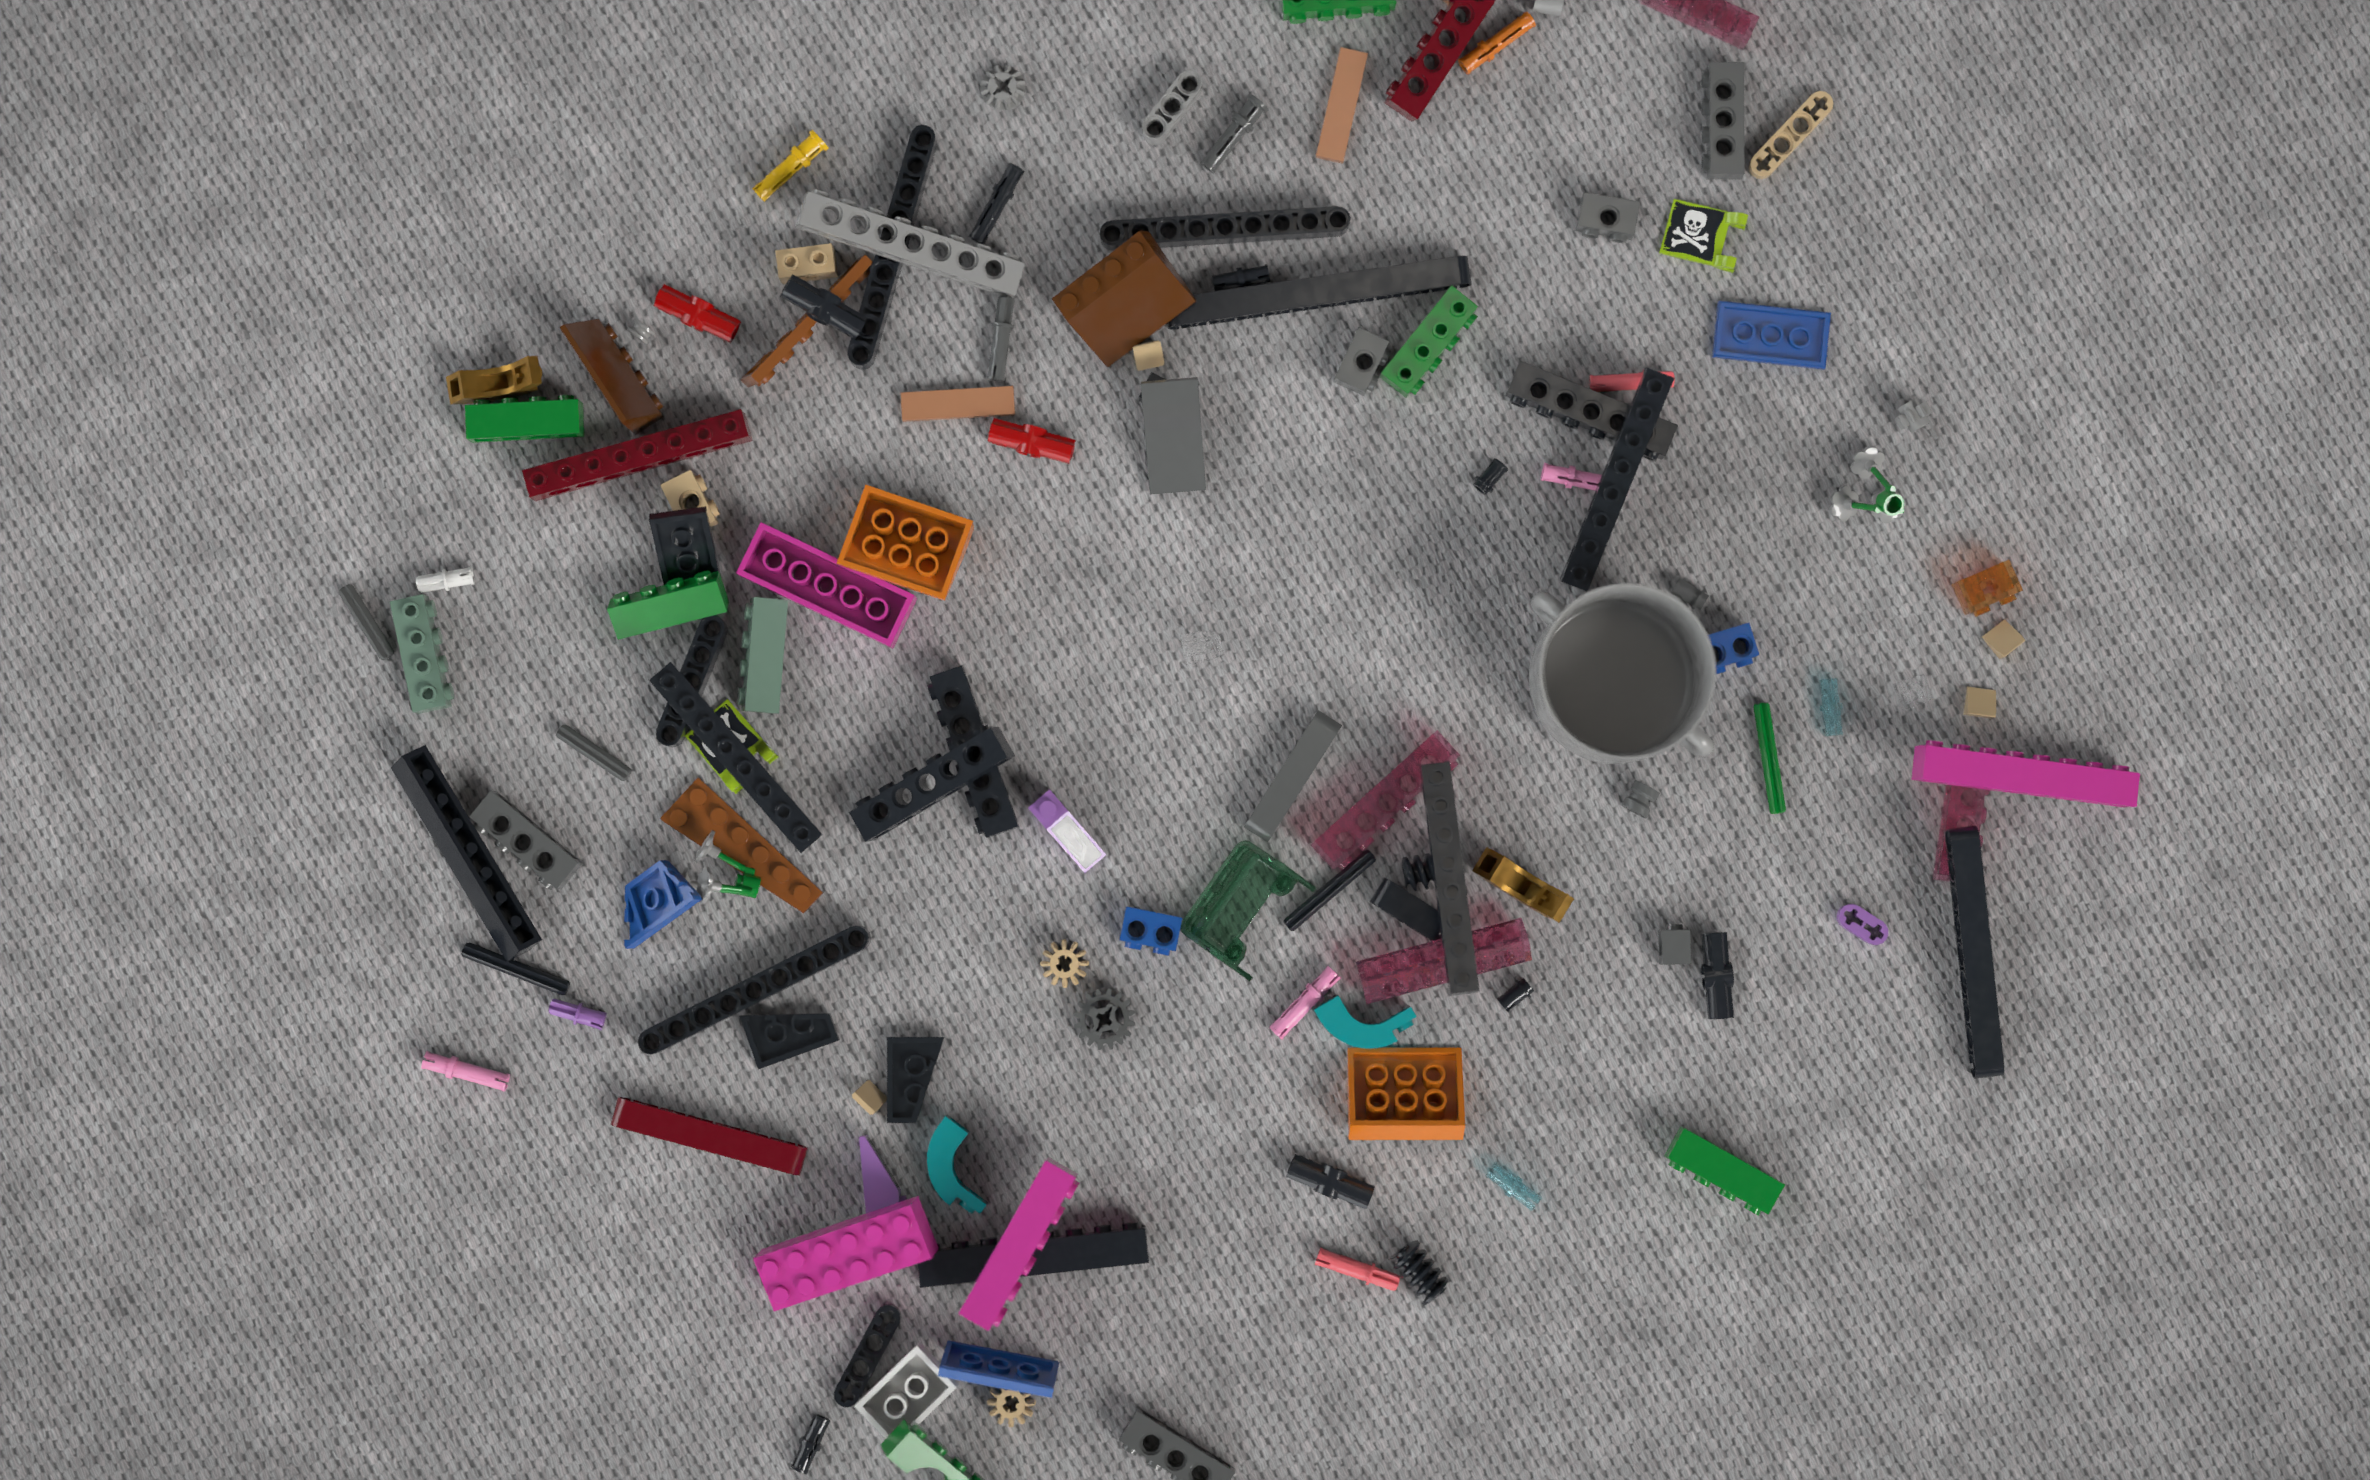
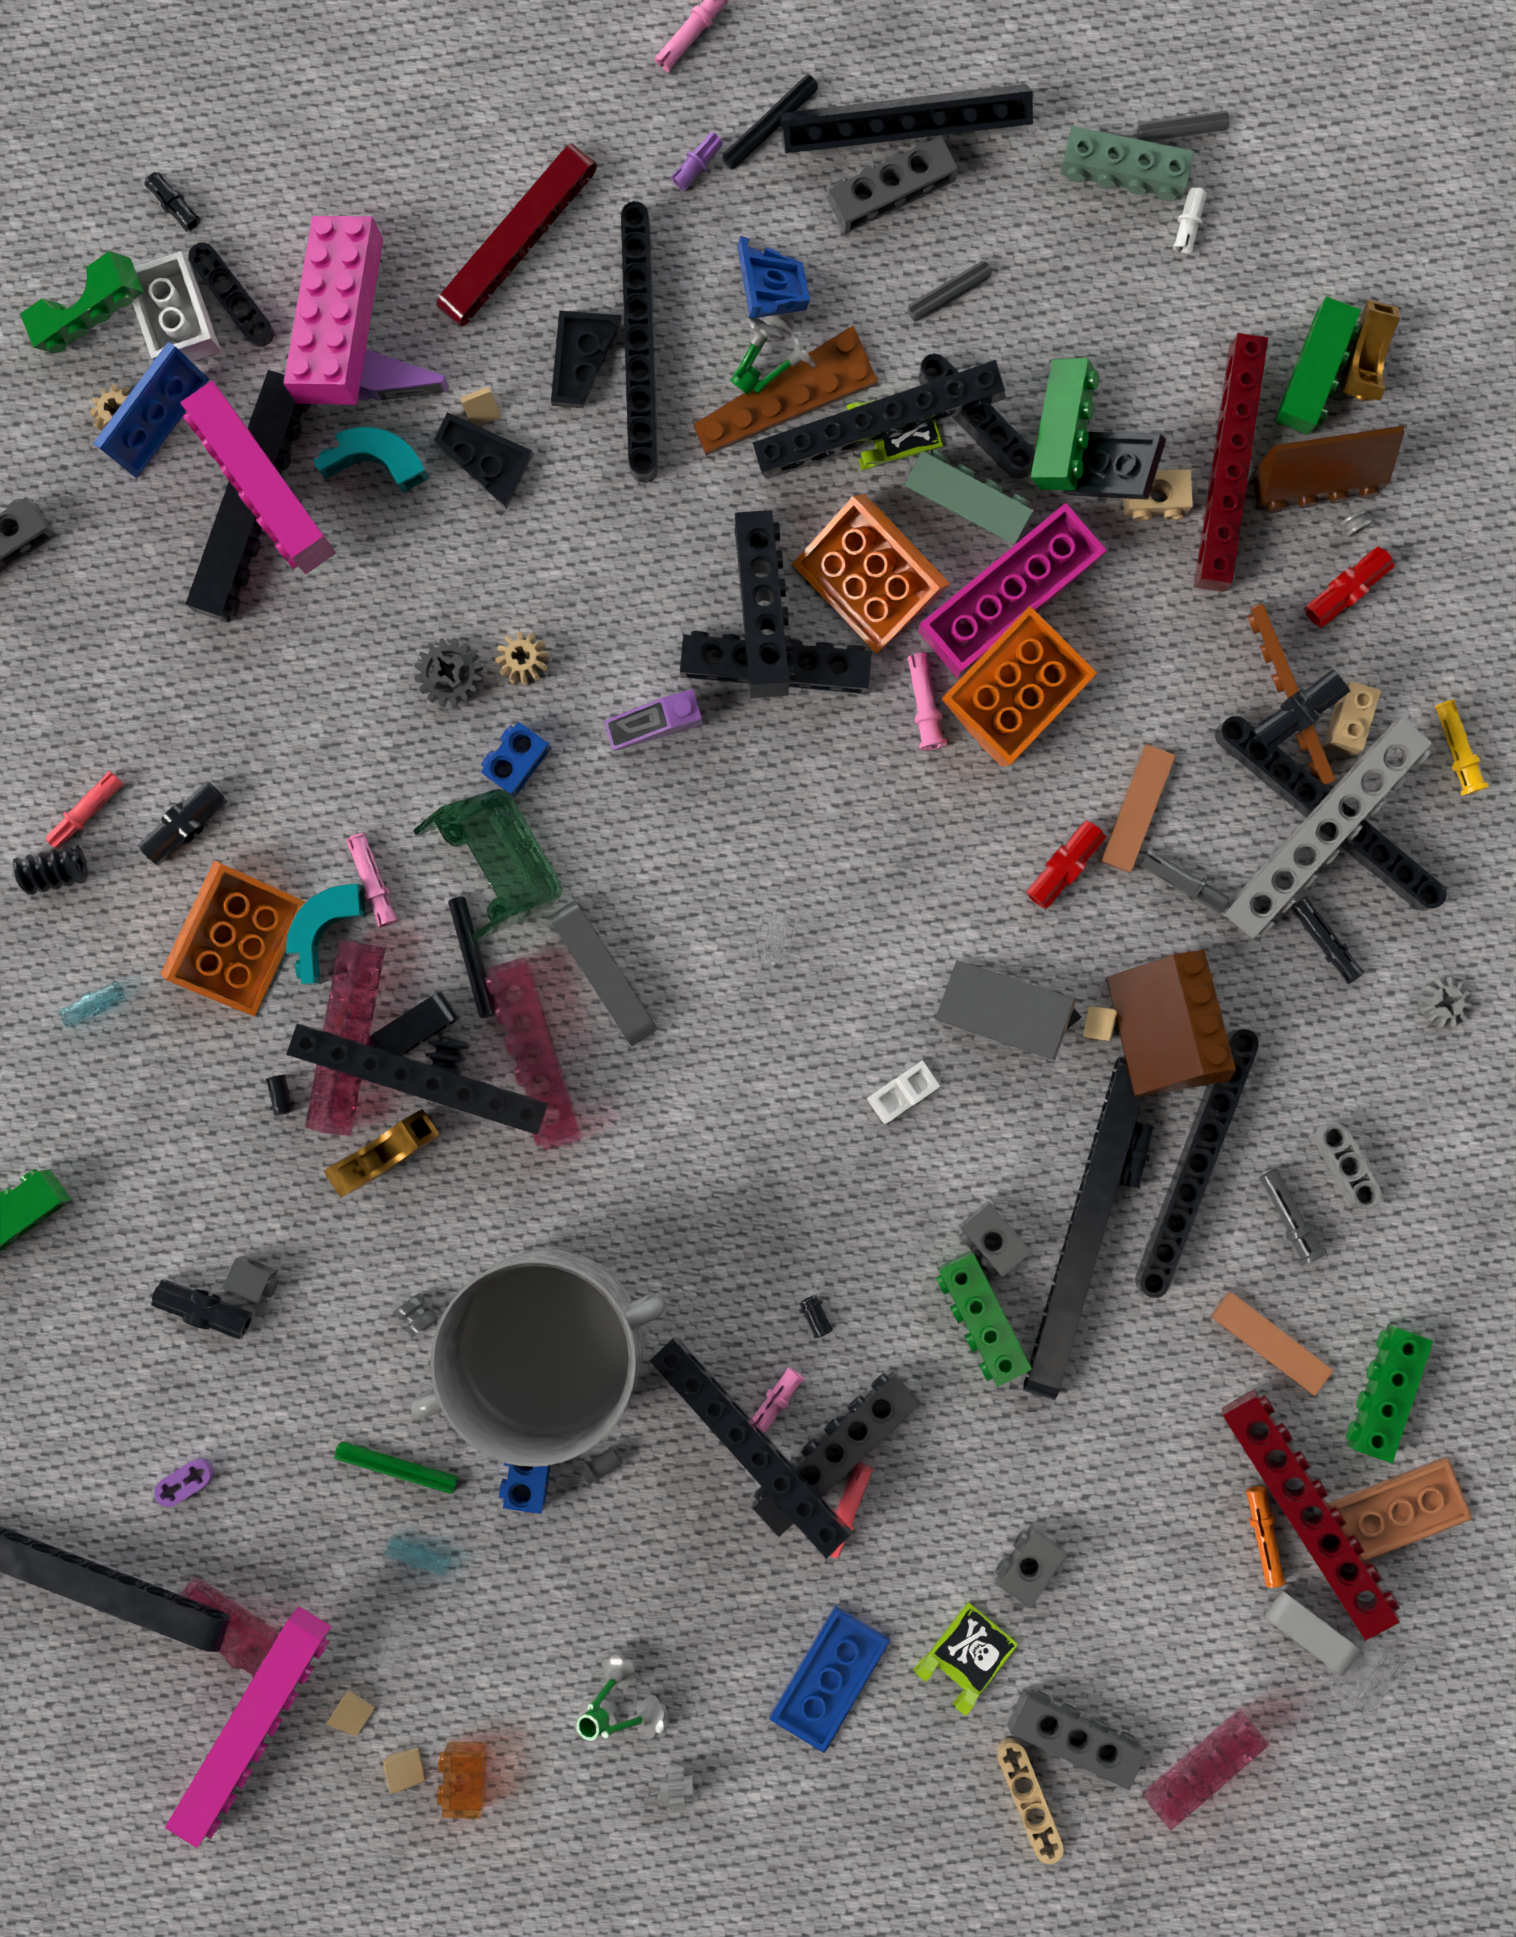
camera: 120 degrees right, 0 degrees up
(862, 708) = (870, 572): none -> orange slope
(961, 607) = (928, 716): none -> bright pink pin
(1277, 488) = (903, 1092): none -> white slope

